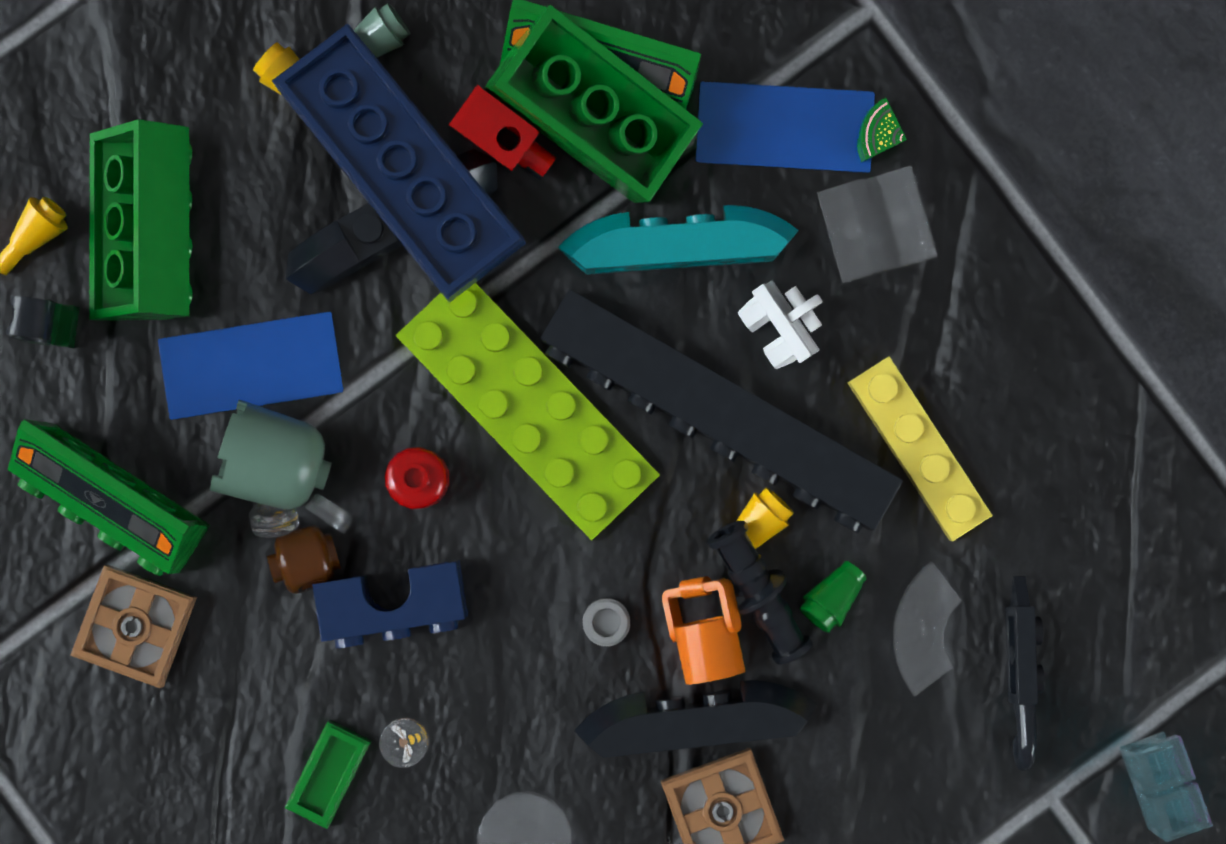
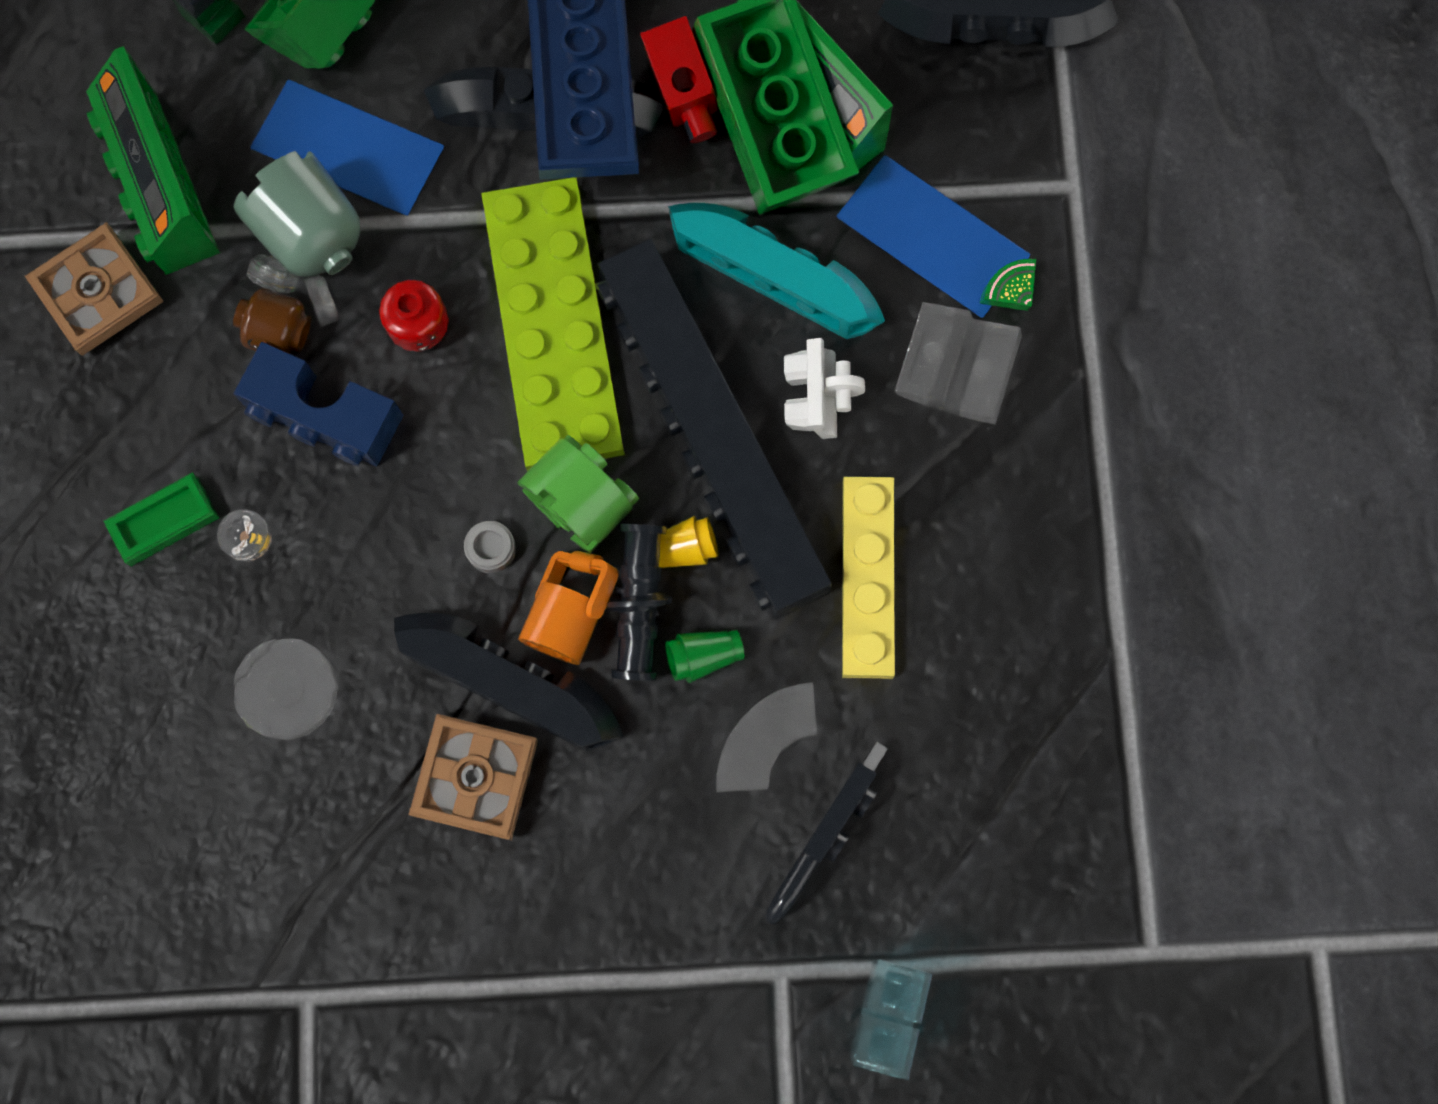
camera: 35 degrees right, 10 degrees down
(655, 538) = (576, 492): none -> bright green brick

